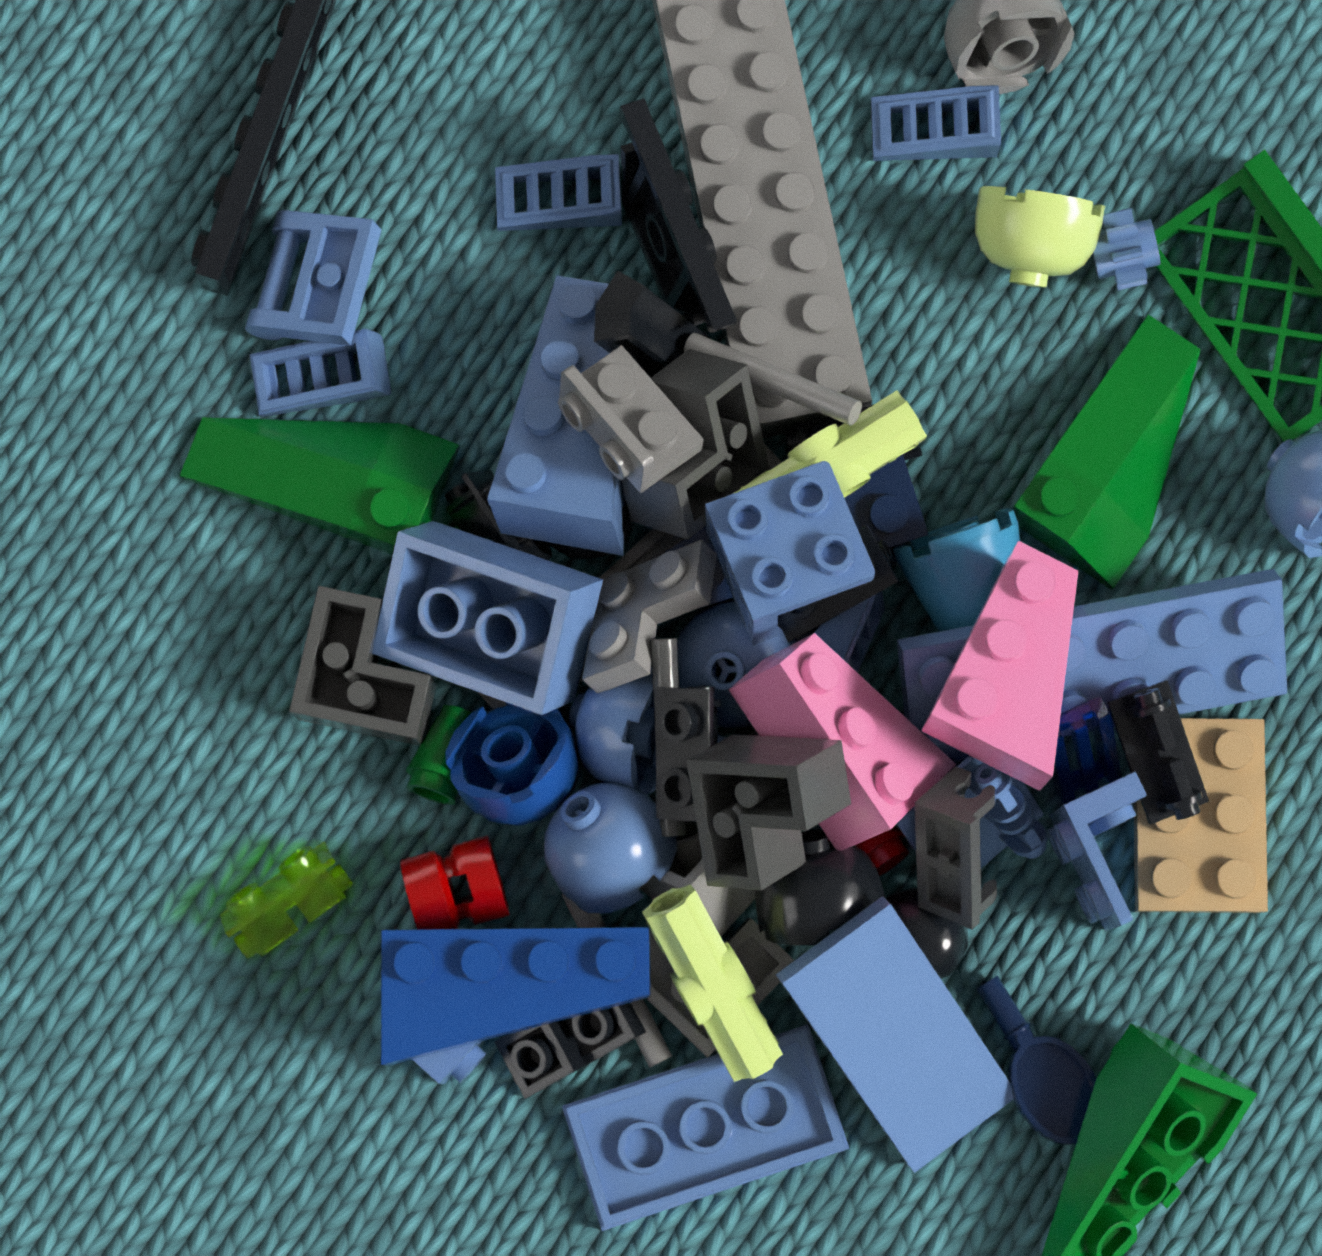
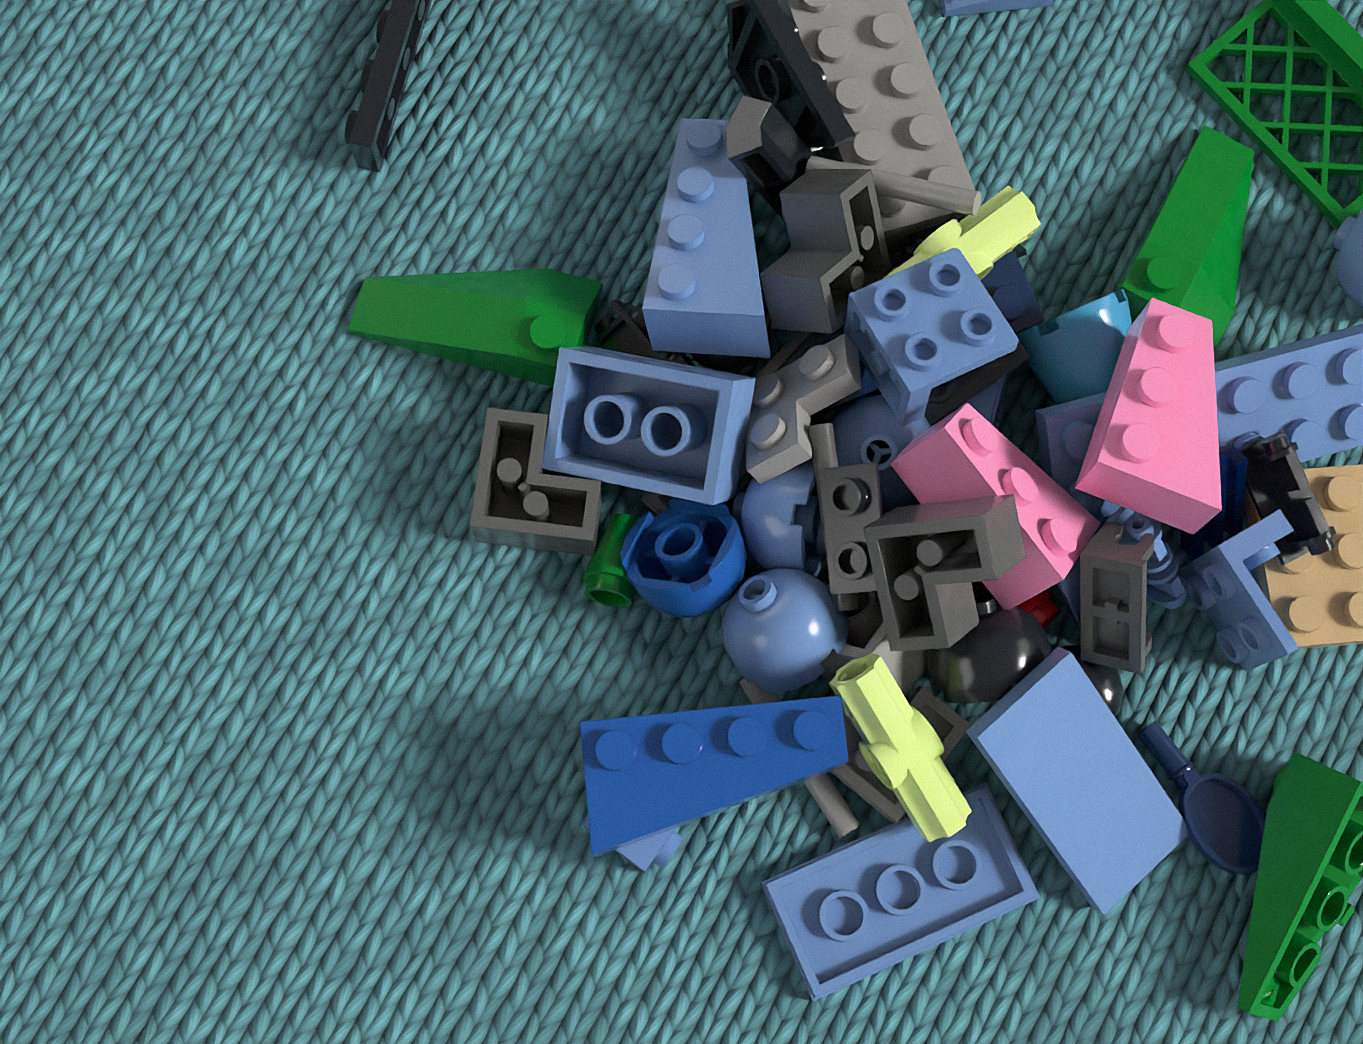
camera: 15 degrees left, 5 degrees down
(262, 909) = (492, 691): clear neon green hinge -> none
(329, 279) = (472, 144): medium blue plate -> none
(372, 366) = (476, 248): medium blue slope -> none
(432, 892) = (618, 685): red wheel -> none
(557, 171) = (684, 38): medium blue slope -> none
(565, 1046) = (753, 827): black slope -> none
(628, 418) = (767, 223): light grey bracket -> none
(1036, 233) = (1104, 52): yellowish green cylinder -> none
(1125, 249) = (1180, 66): medium blue gear -> none

